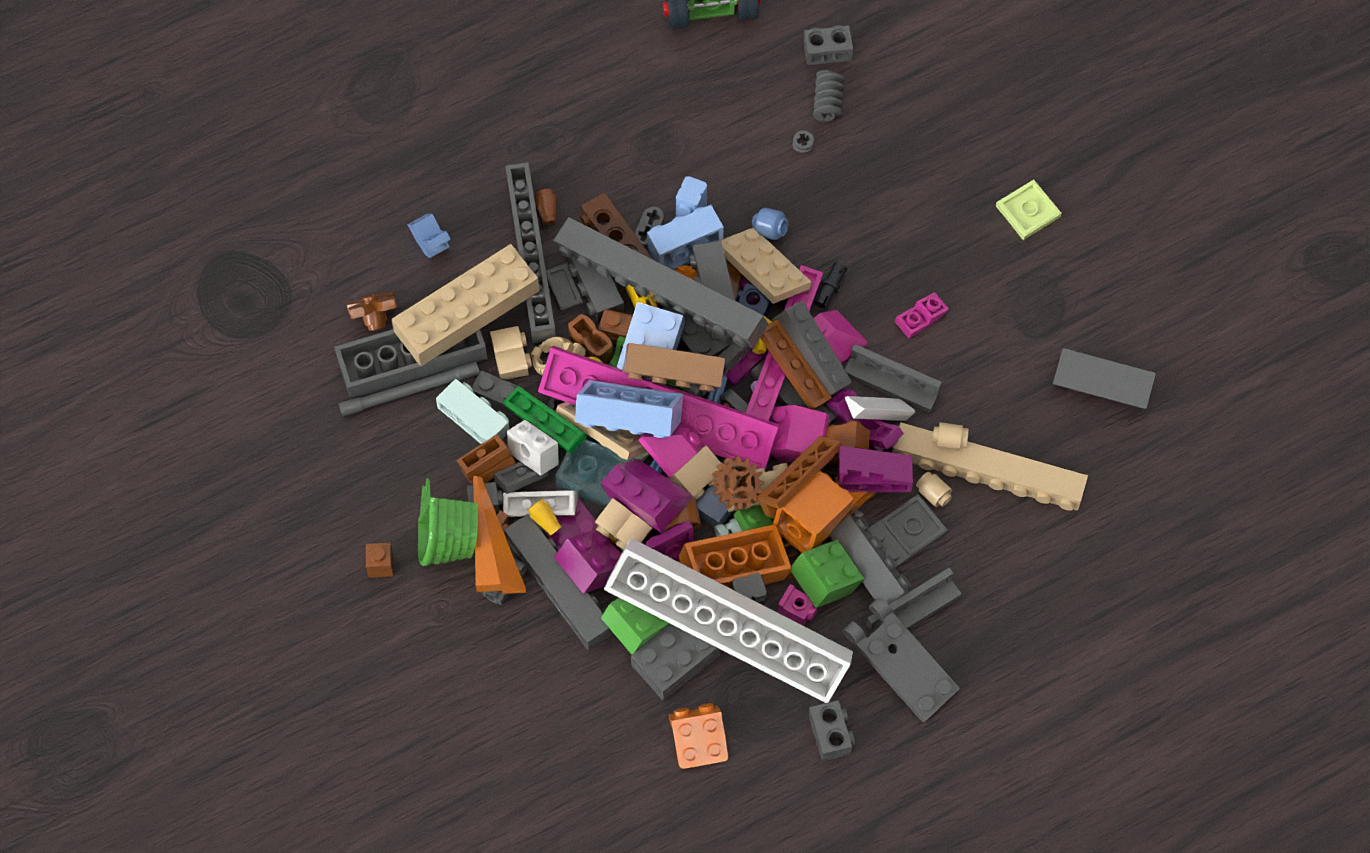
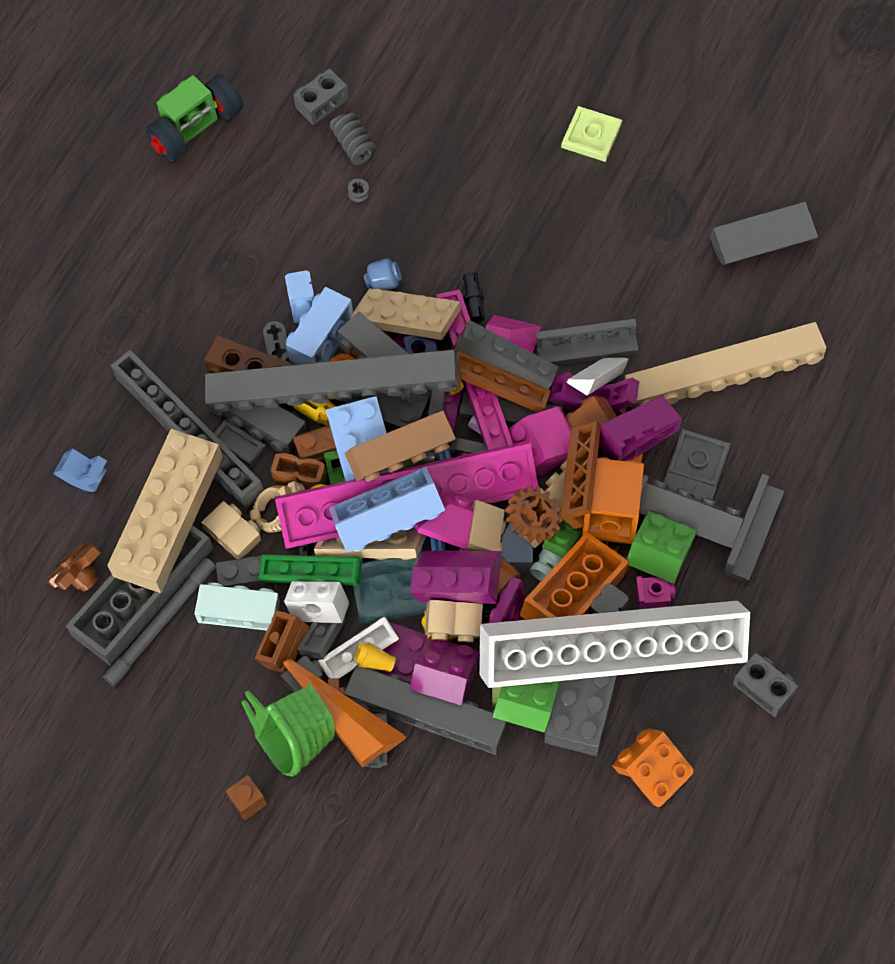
camera: 30 degrees left, 0 degrees up
(546, 205) = (171, 378): dark orange cone -> none
(910, 669) = (794, 583): dark grey hinge -> none
(922, 315) = (569, 275): dark pink slope -> none
(934, 489) = (695, 415): tan brick -> none
(950, 435) = (679, 359): tan brick -> none

